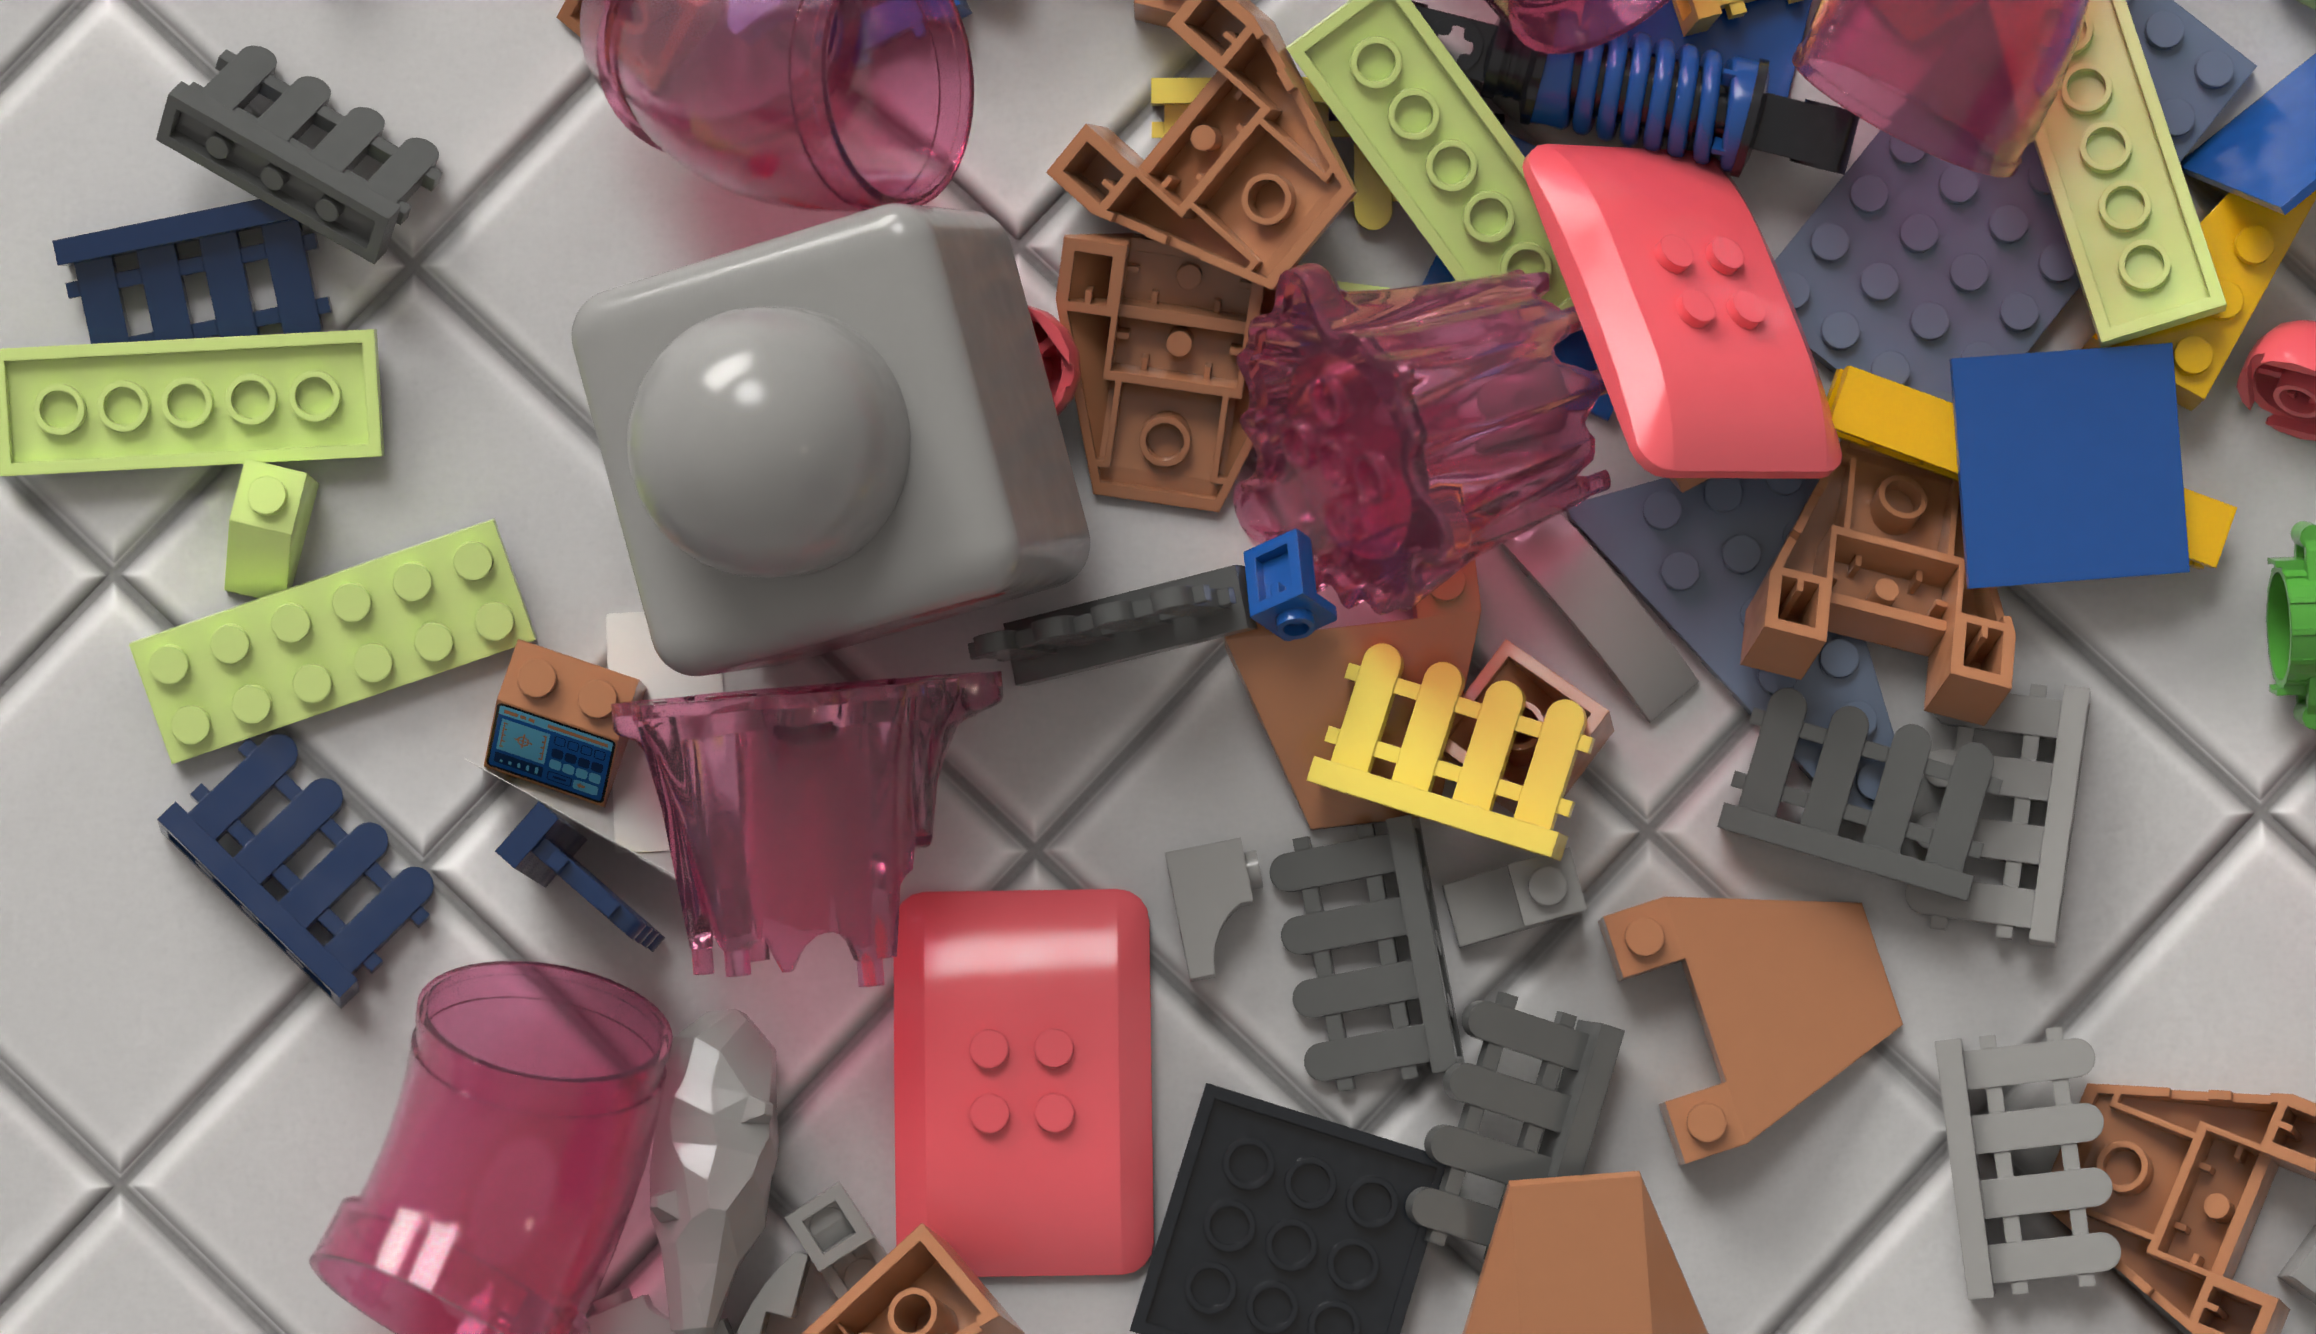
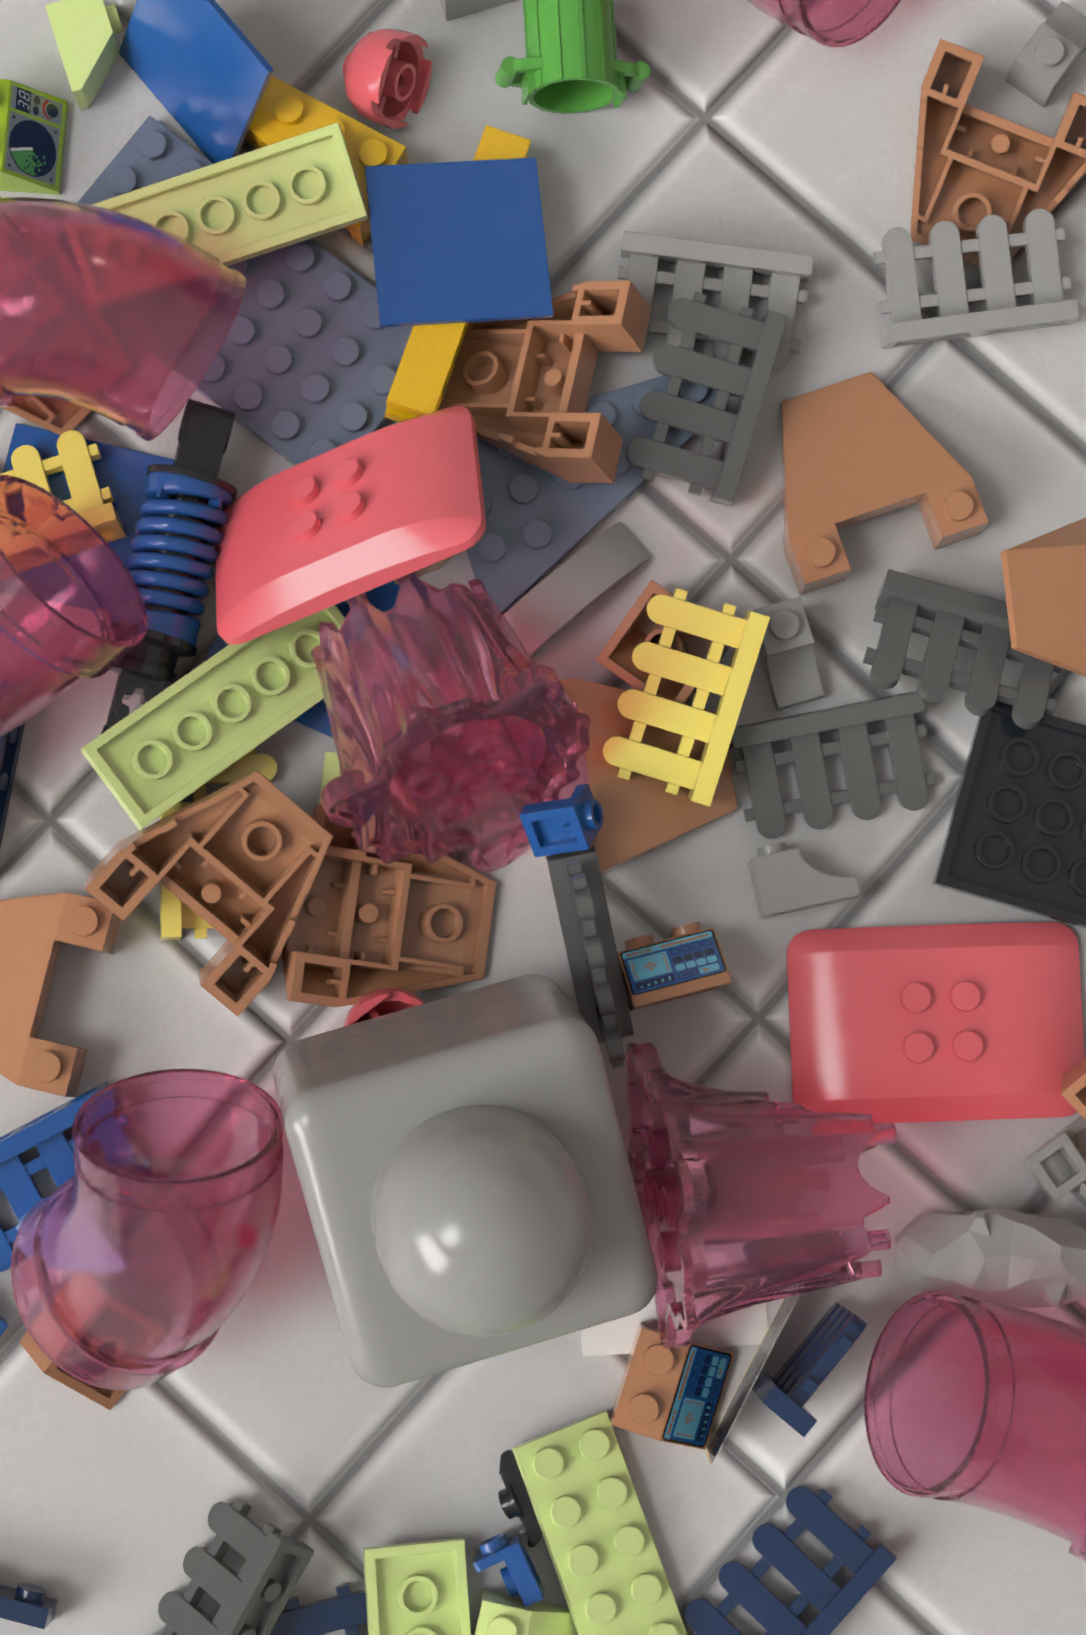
camera: 95 degrees left, 0 degrees up
(340, 526) = (519, 1572): none -> blue bracket
(428, 522) = (515, 1498): none -> black piece
(1100, 733) = (672, 967): none -> slope

